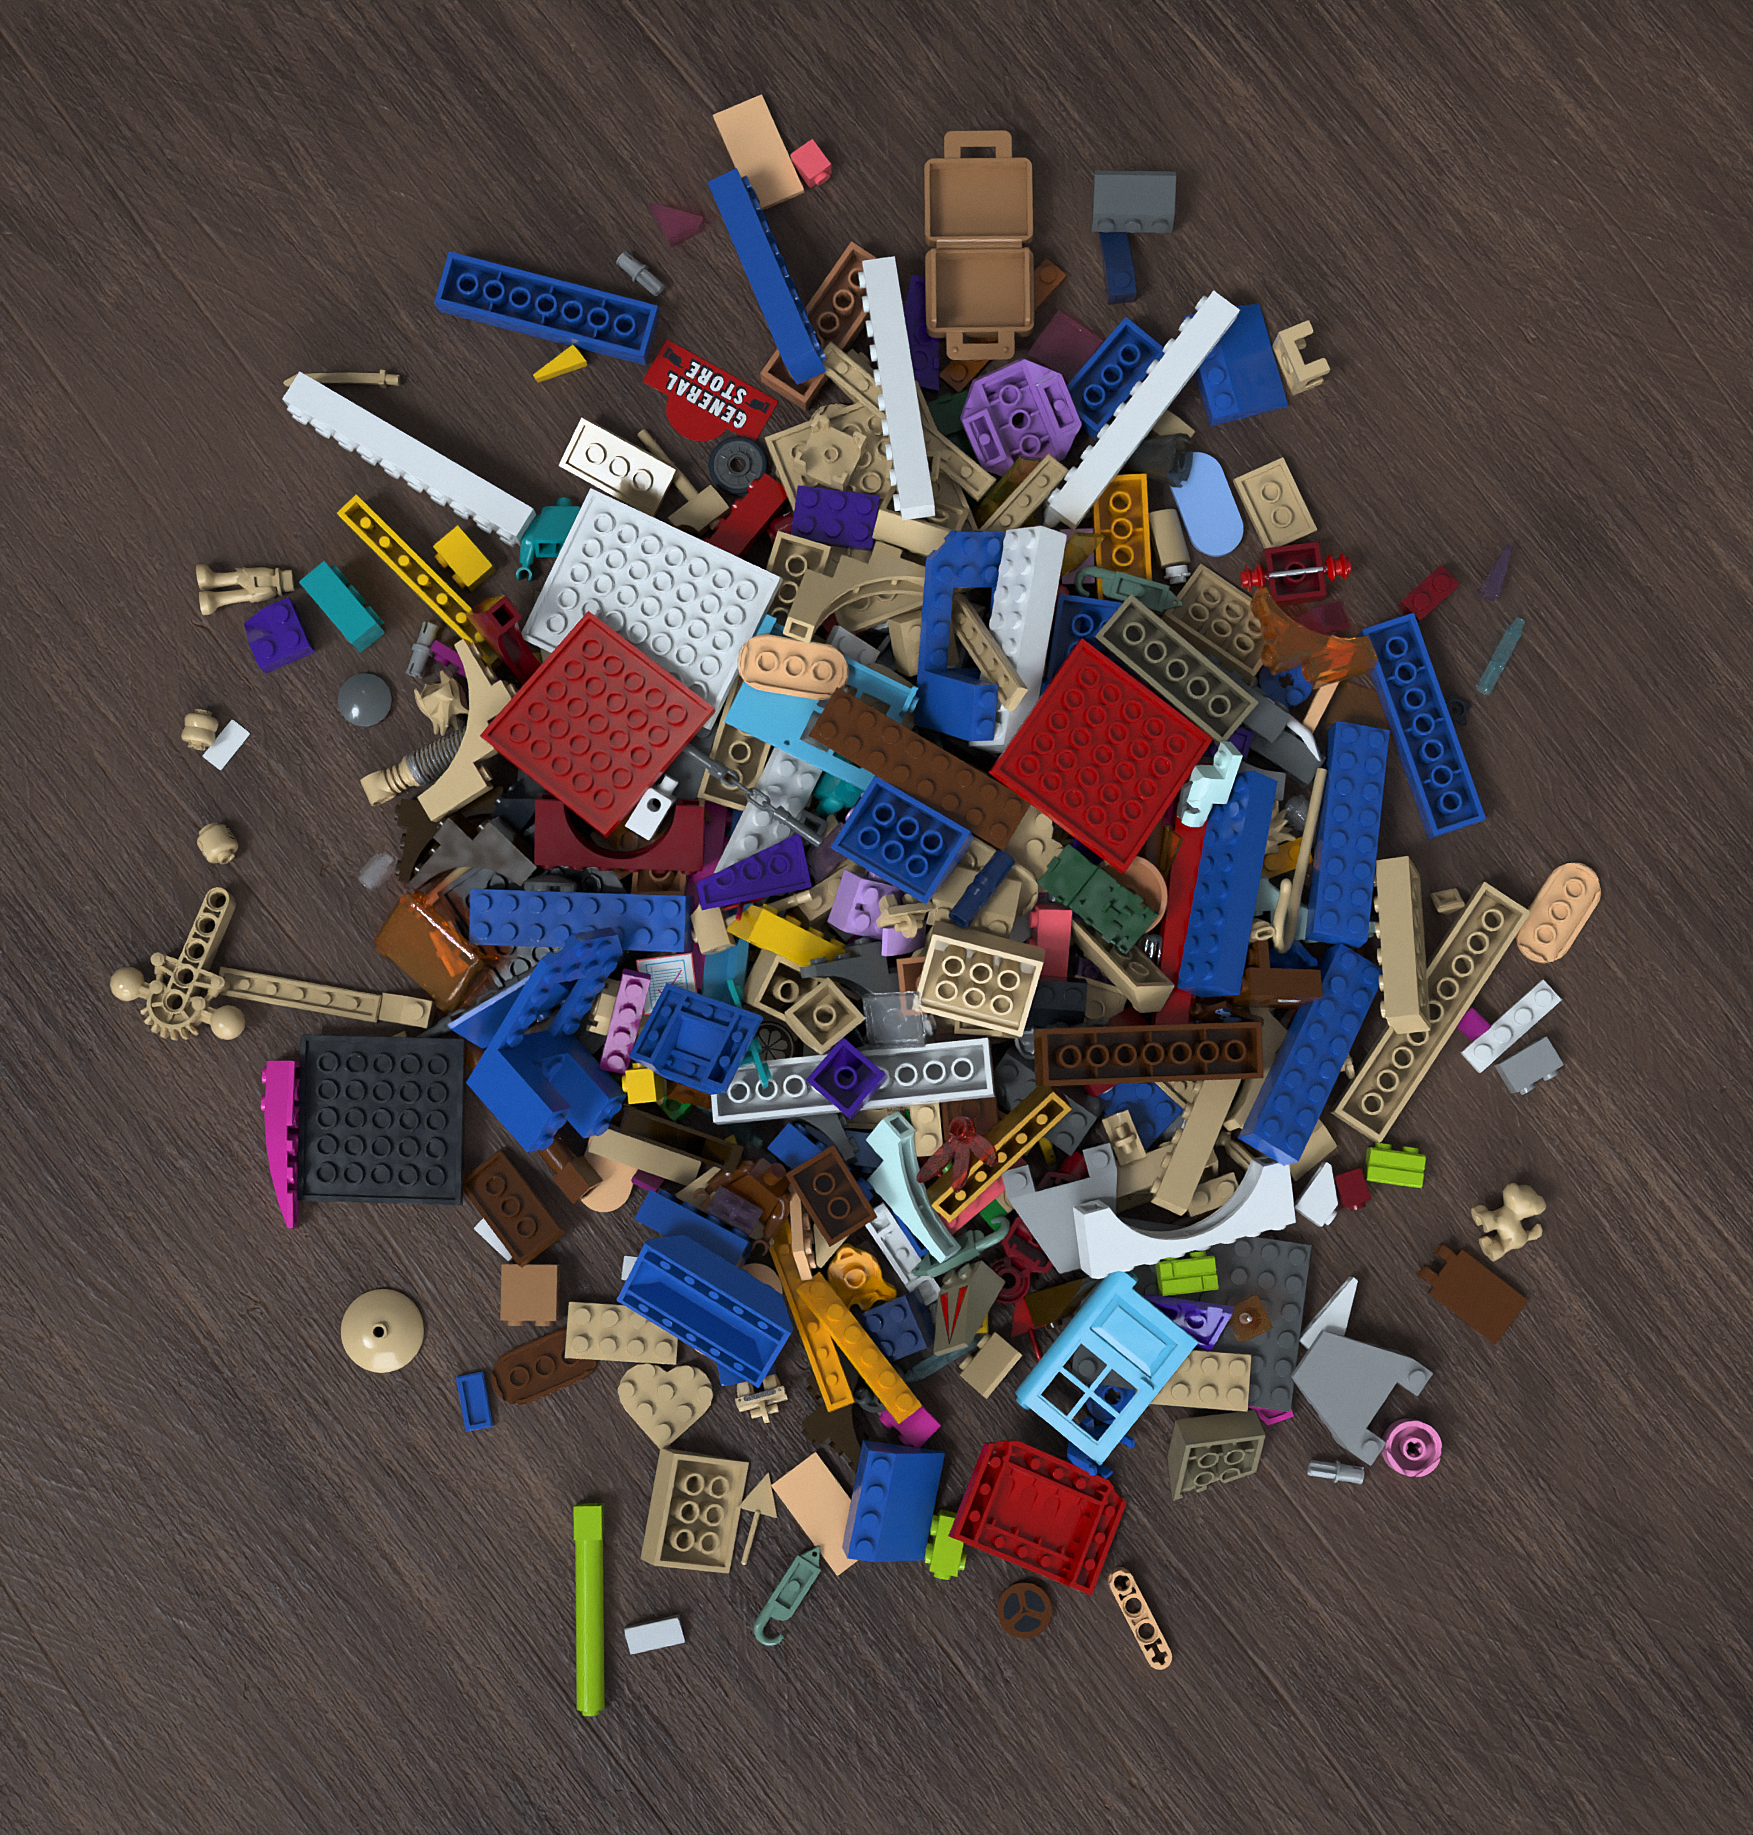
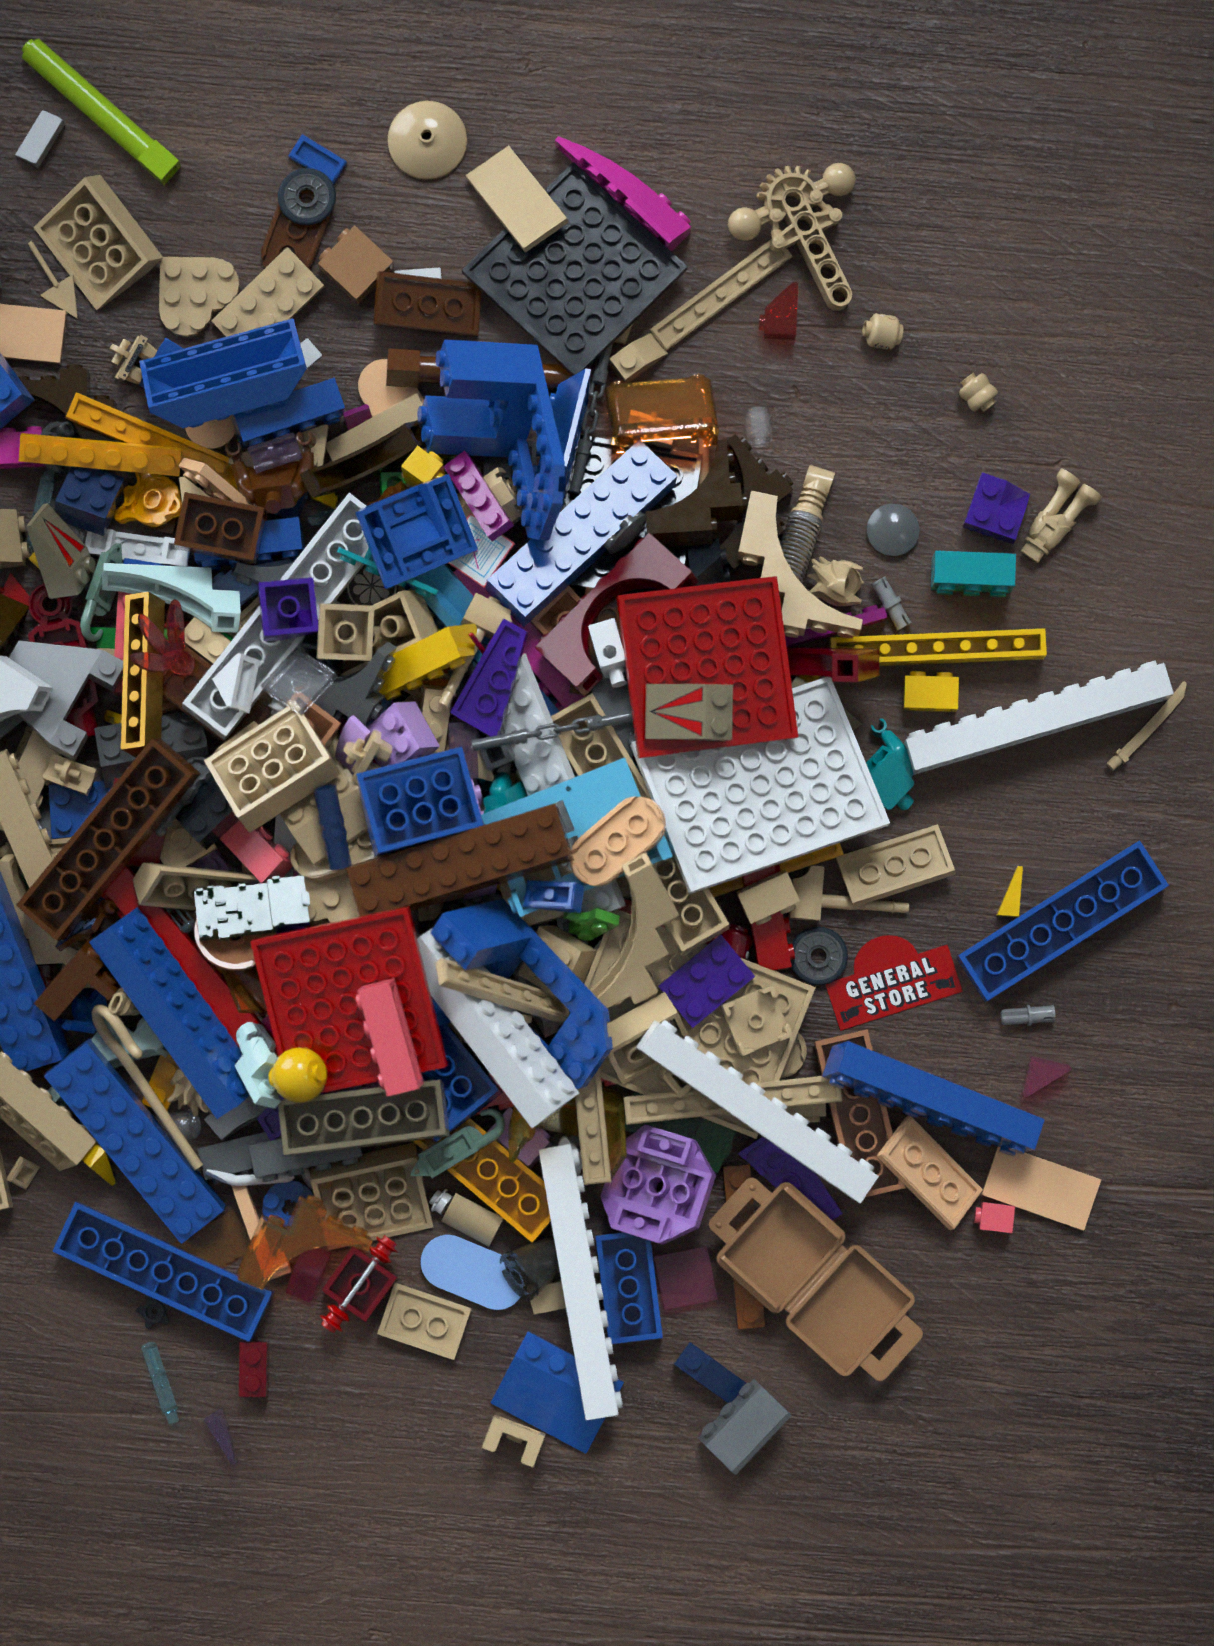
camera: 135 degrees right, 0 degrees up
(226, 744) = (952, 403): white sticker -> none
(273, 931) = (781, 315): none -> clear red slope
(366, 1215) = (517, 199): none -> tan tile
(529, 1380) = (311, 212): none -> wheel
(644, 700) = (689, 712): none -> dark tan slope
(730, 530) = (768, 897): none -> tan brick
(823, 236) = (929, 1172): none -> light nougat tile
(873, 640) = (592, 923): none -> bright green plate
(878, 679) = (554, 896): none -> blue slope
(939, 1066) = (237, 682): none -> white slope
(1099, 697) = (390, 1037): none -> coral brick
(1191, 741) = (298, 1075): none -> yellow brick
(1389, 845) = (98, 1161): none -> yellow piece

